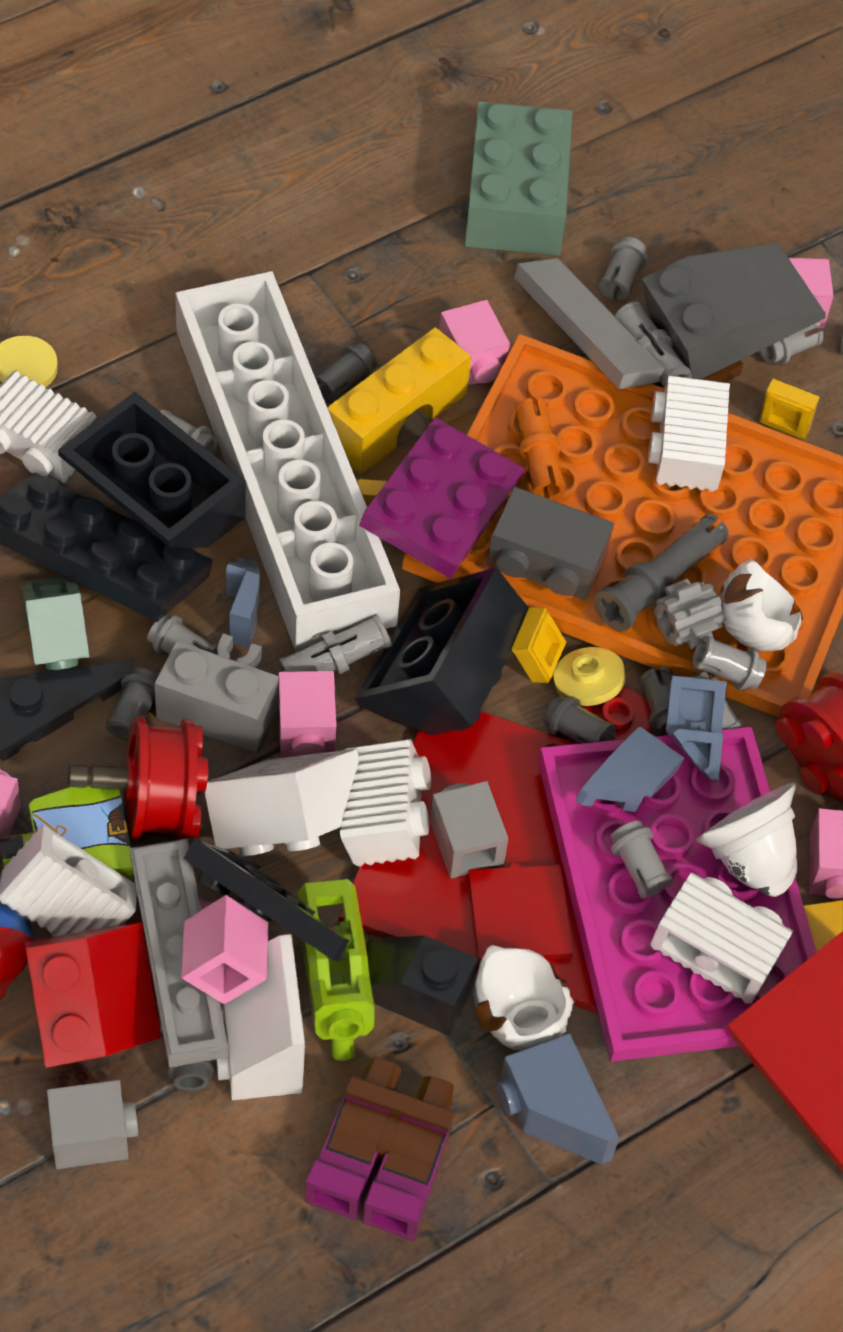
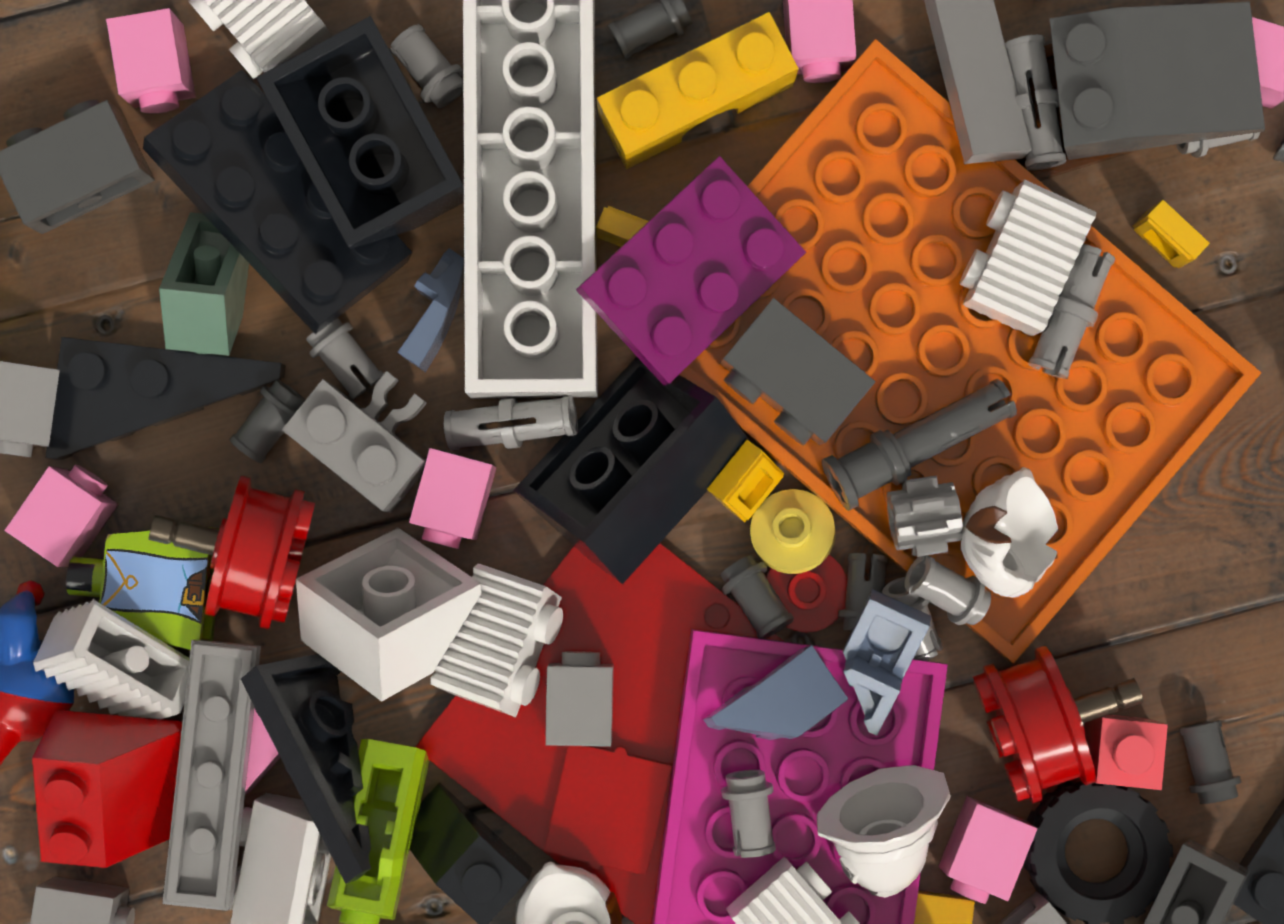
camera: 25 degrees right, 30 degrees up
(225, 950) = (248, 811): bright pink brick -> none
(540, 448) = (835, 227): orange pin -> none
(740, 464) = (1072, 313): none -> light grey pin

